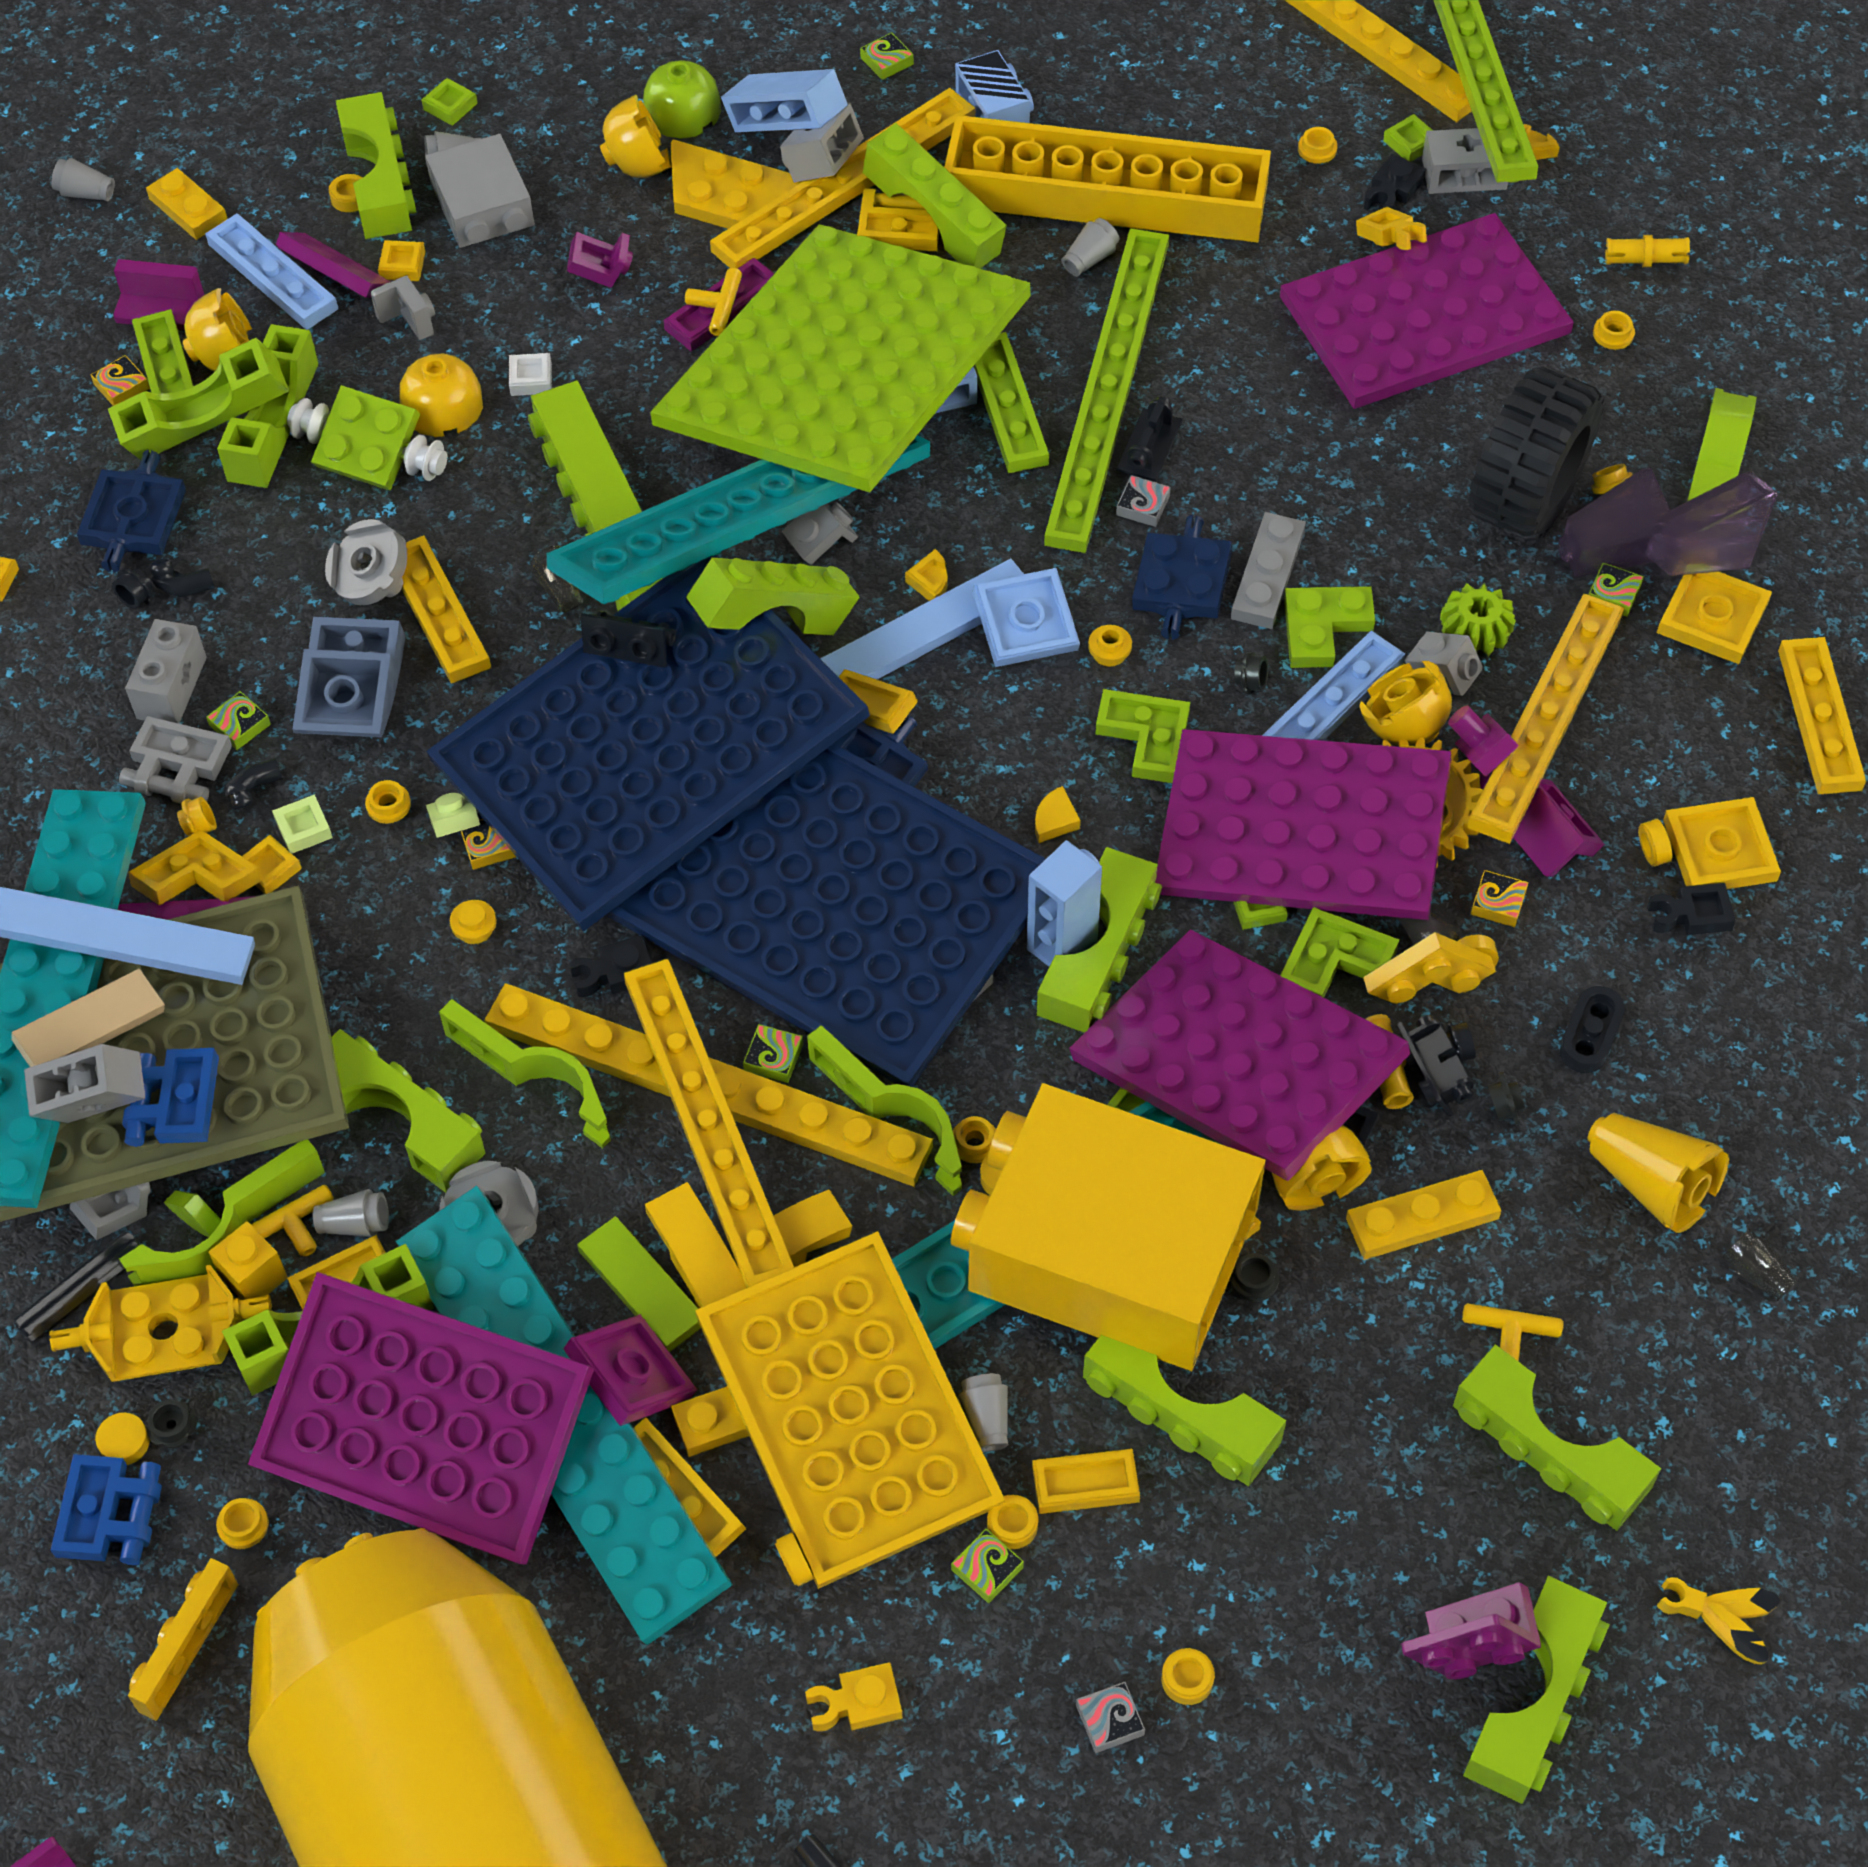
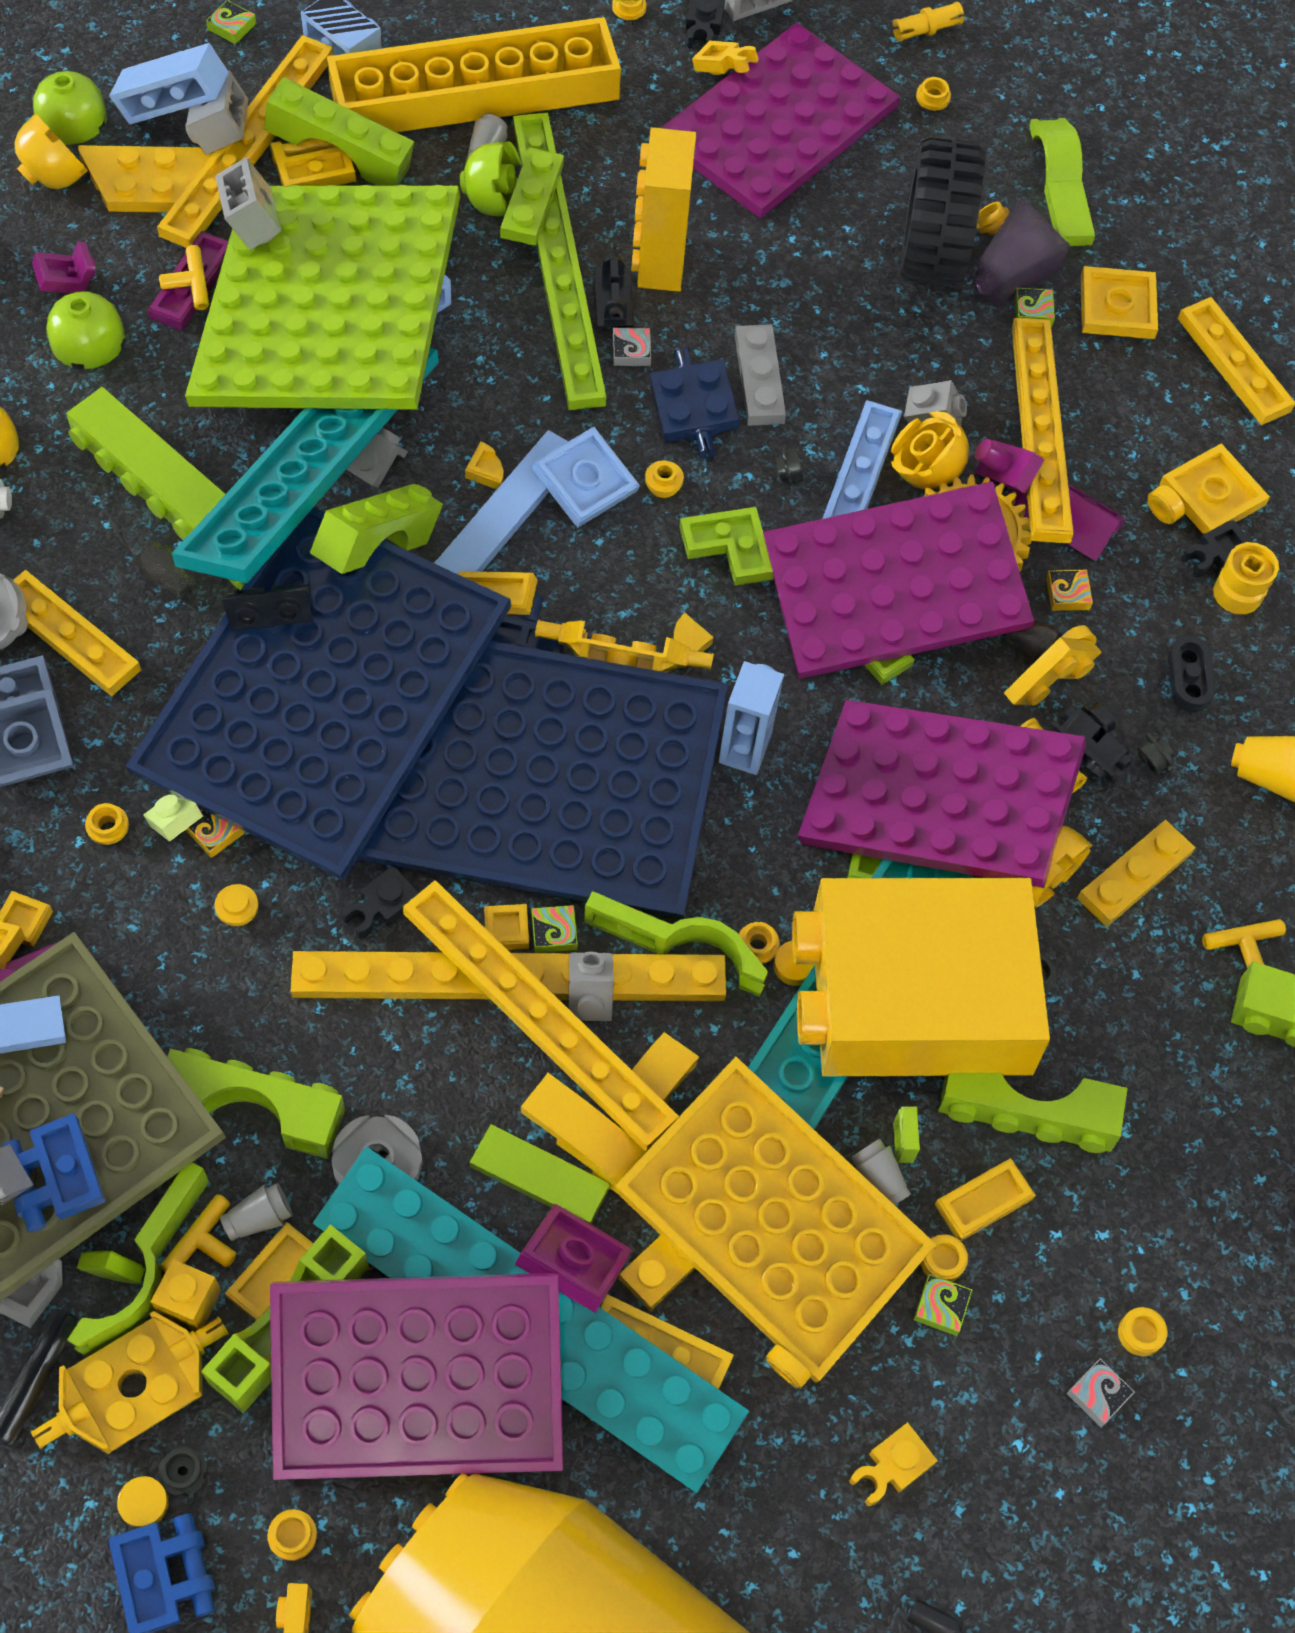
camera: 30 degrees left, 5 degrees up
(302, 824) = (38, 871): yellowish green plate -> none
(525, 1064) = (340, 1020): lime piece -> none
(530, 373) = (48, 393): white tile -> none
(592, 322) = (84, 330): none -> lime cylinder
(728, 1034) = (508, 925): none -> yellow tile
(776, 1119) = (591, 986): none -> light grey bracket
(800, 241) = (248, 204): none -> light grey brick
(1010, 407) = (488, 302): lime plate -> none
(1011, 821) = (640, 655): none -> yellow plate
(1030, 1382) = (906, 1135): none -> lime tile
(1076, 287) = (491, 177): none -> lime cylinder
(1079, 983) = (780, 778): lime arch -> none
(1107, 315) = (532, 196): none -> lime plate
(1227, 365) = (663, 208): none -> yellow brick
(1319, 612) = (816, 403): lime plate -> none
(1334, 944) = (964, 673): lime plate -> none
(1480, 615) = (946, 360): lime gear -> none
(1704, 947) = (1245, 578): none -> yellow wheel
(1713, 529) = (1097, 233): clear purple slope -> none

